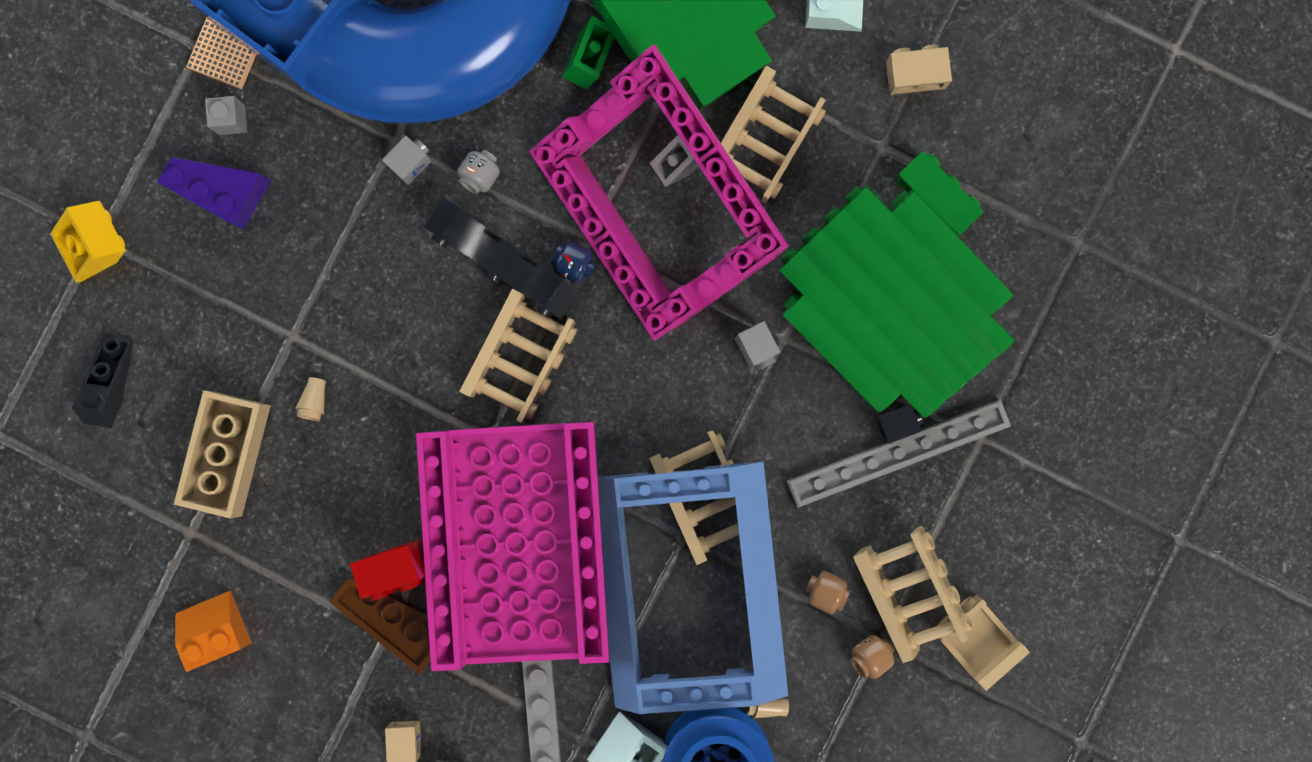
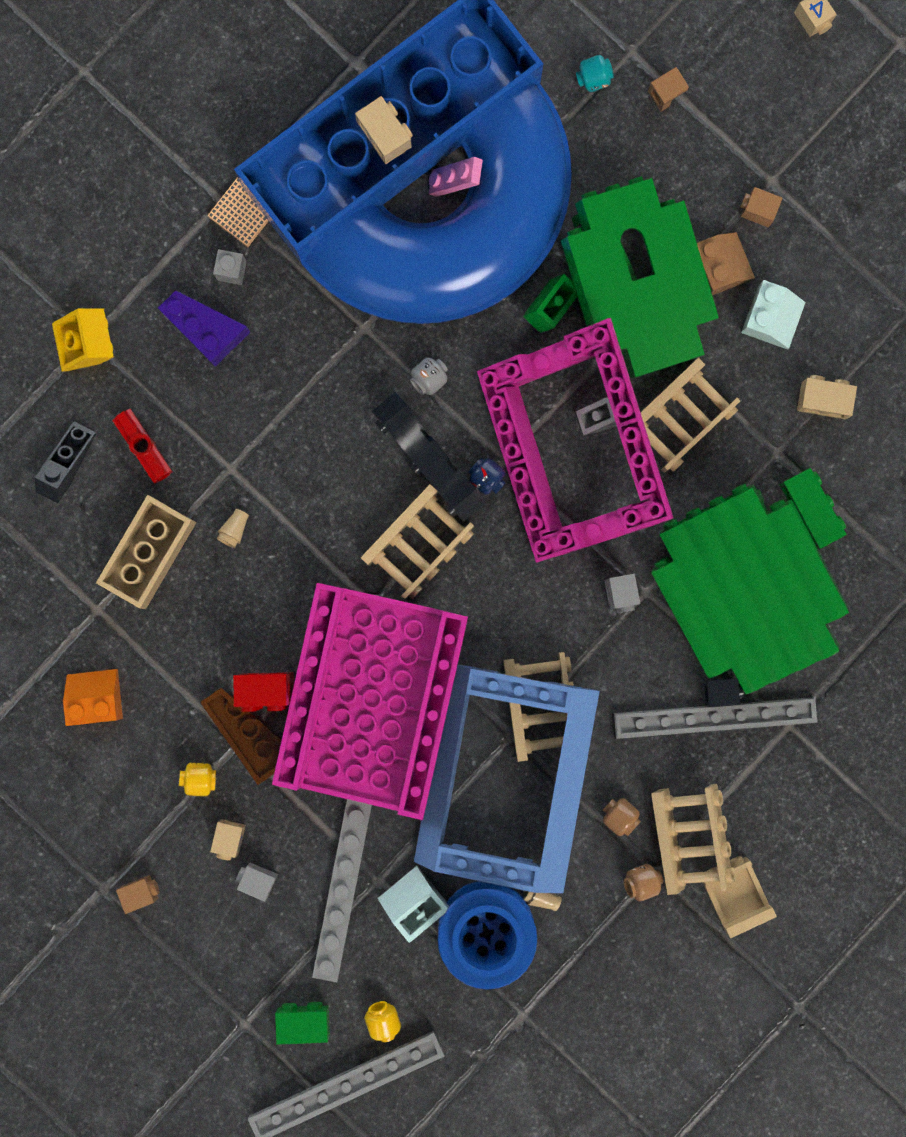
camera: 15 degrees right, 0 degrees up
(173, 328) = (133, 433): none -> red piece
(351, 687) = (198, 779): none -> yellow head
(408, 159) = (372, 348): light grey brick -> none

